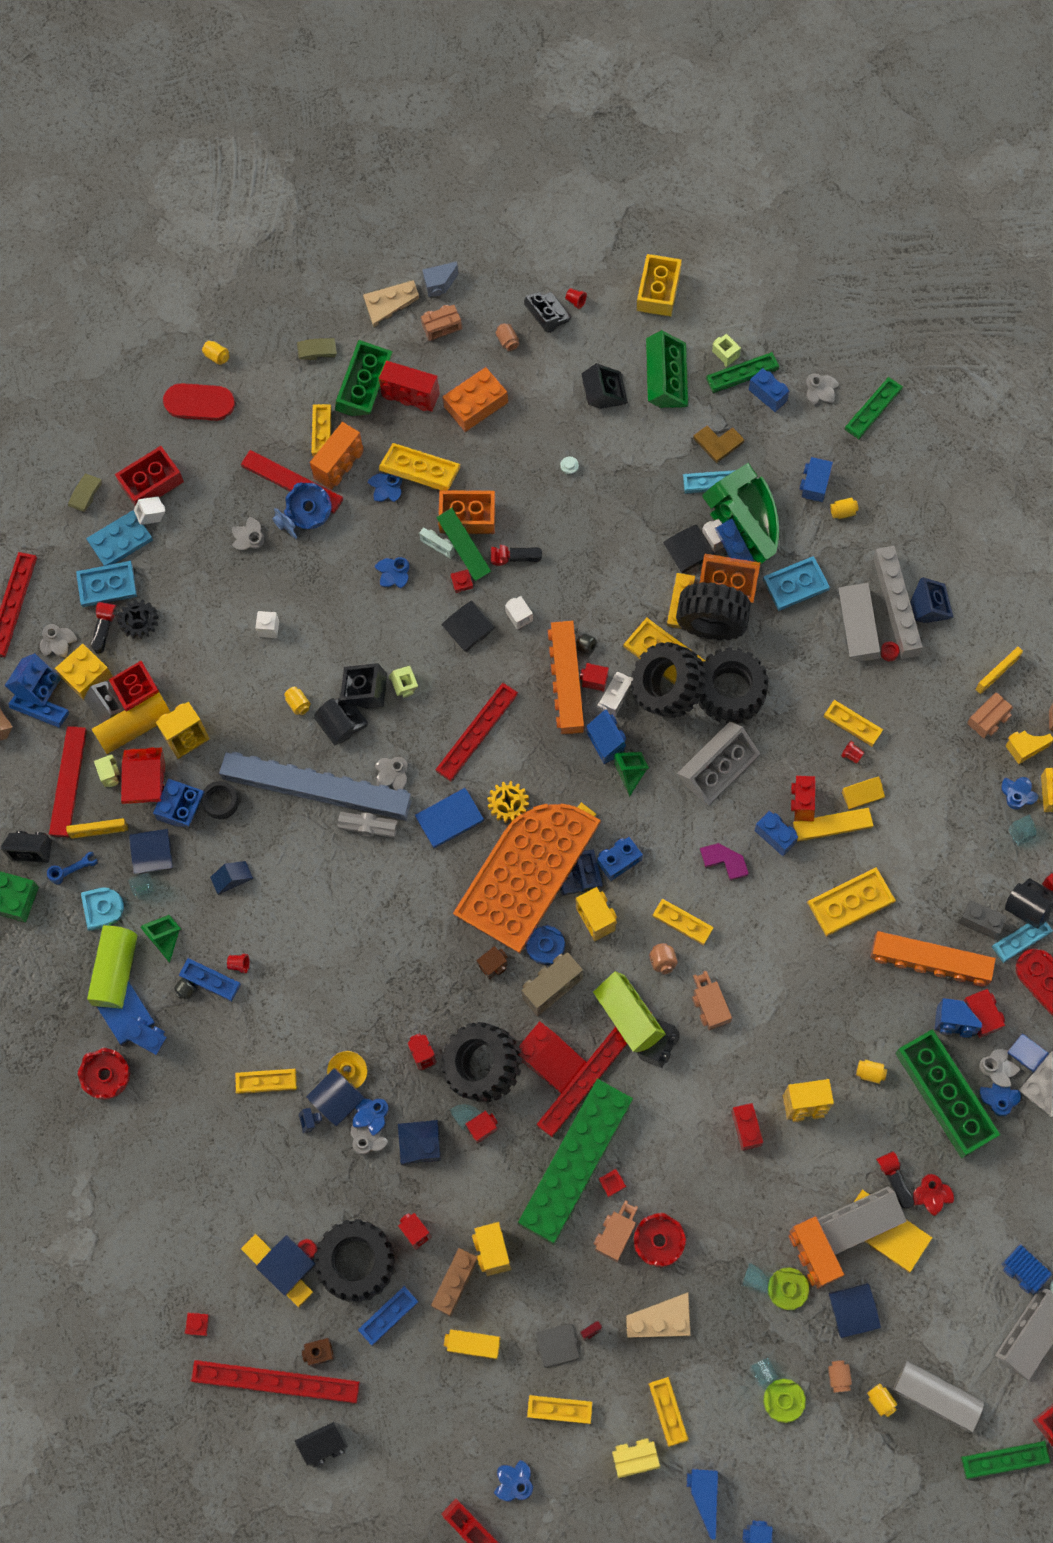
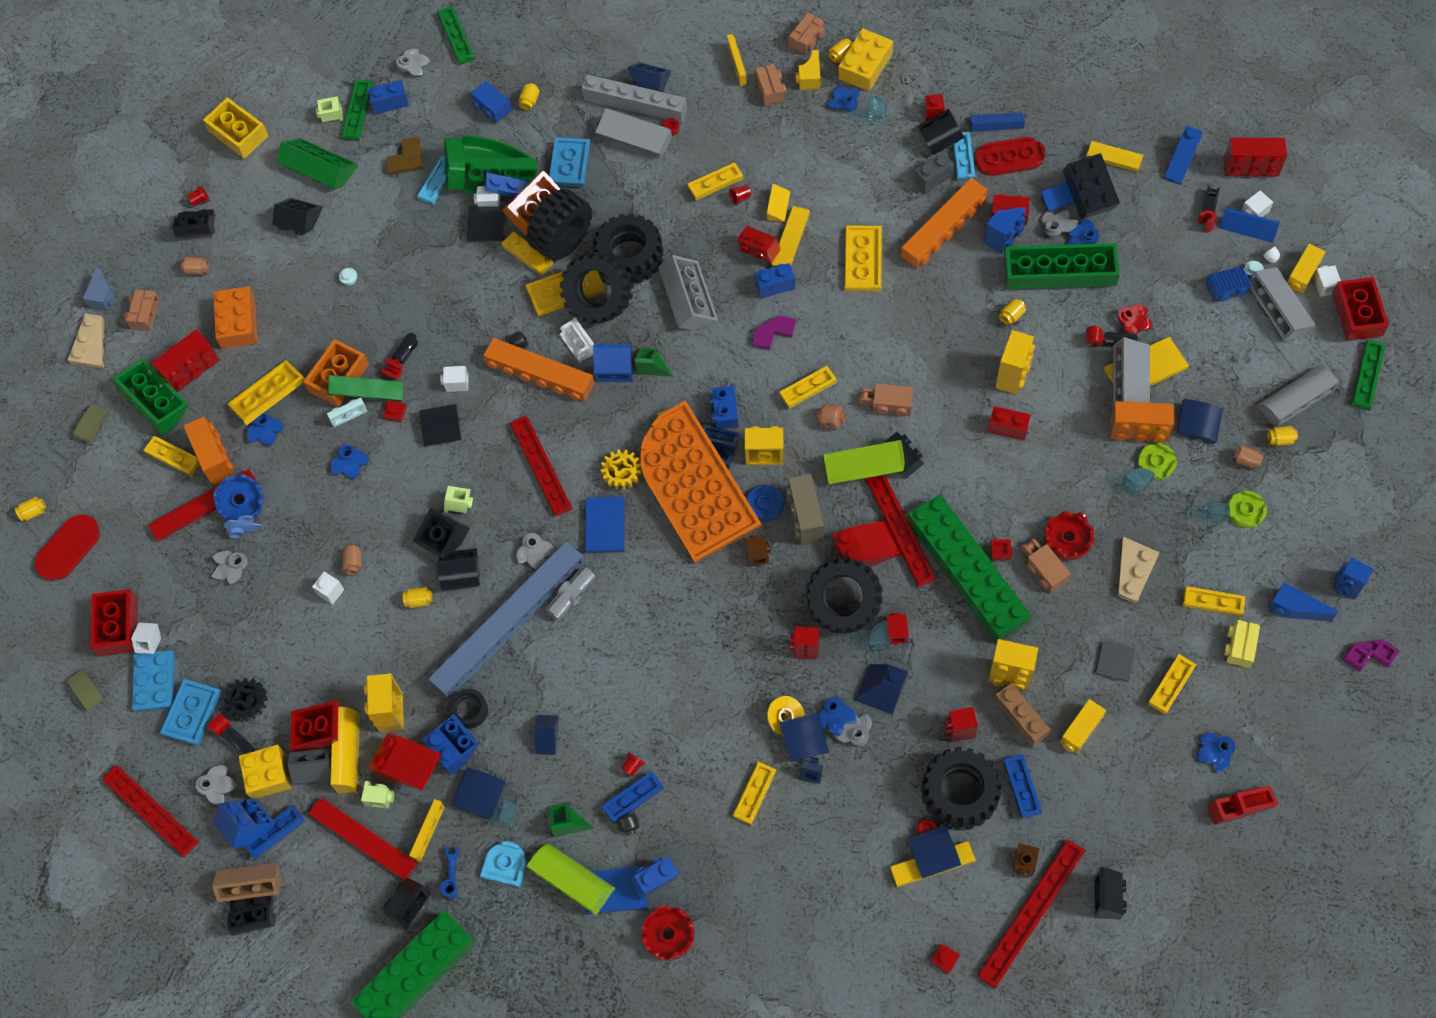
camera: 60 degrees left, 5 degrees down
(303, 628) = (351, 560): none -> nougat brick
(591, 1331) = (1120, 623): dark red tile -> none
(594, 677) = (553, 347): red brick -> none

